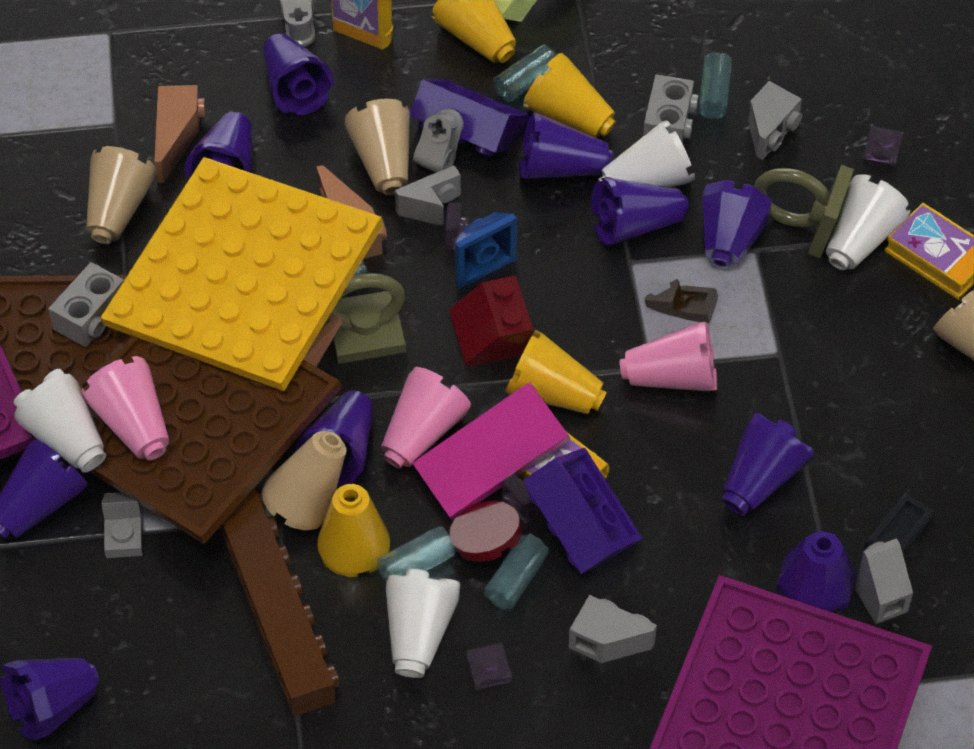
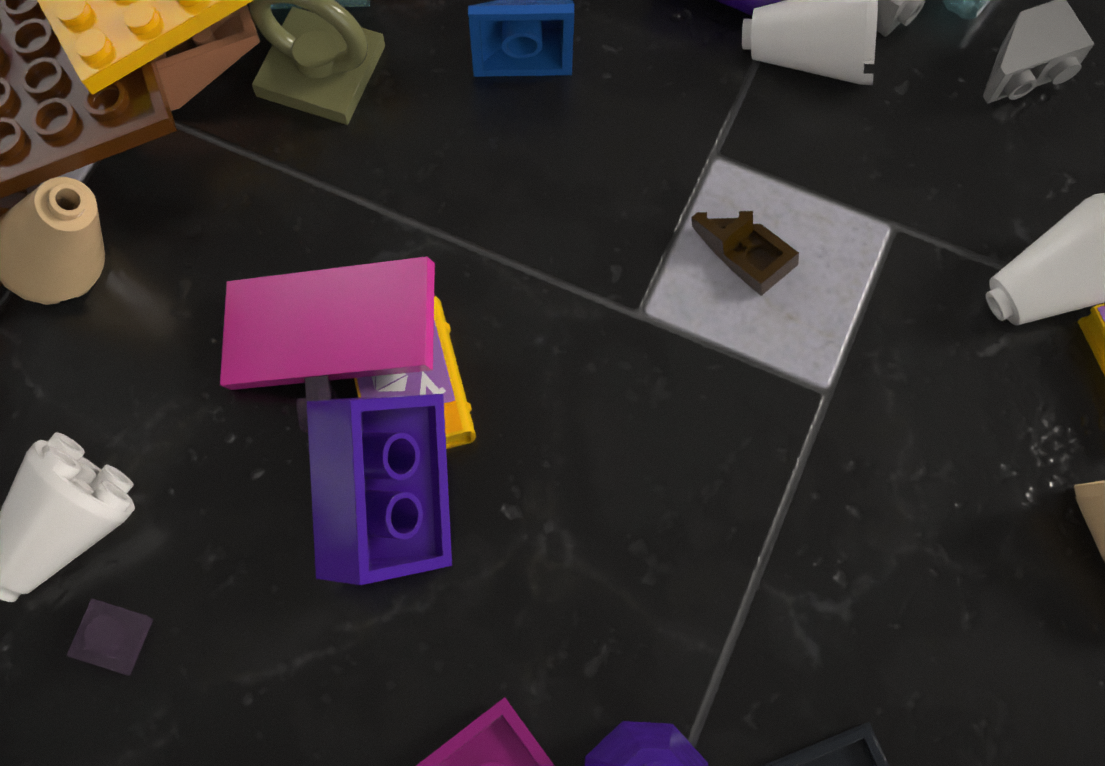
camera: 30 degrees right, 15 degrees up
(351, 420) = (161, 193): dark purple cone -> none
(352, 533) = (72, 339): yellow cone -> none
(419, 553) = (132, 418): clear light blue axle -> none
(422, 417) = (276, 226): bright pink cone -> none
(486, 530) = (243, 435): tile -> none
(492, 322) = (473, 144): dark red slope -> none
(516, 571) = (241, 519): clear light blue axle -> none
(556, 376) = (486, 262): yellow cone -> none
(609, 632) = (288, 689): light grey slope -> none
(634, 208) = (764, 84): dark purple cone -> none
(673, 361) = (667, 330): bright pink cone -> none
(732, 220) = (882, 168): dark purple cone -> none
(763, 463) = (680, 560): dark purple cone -> none
(824, 209) = (1023, 220): olive tile -> none

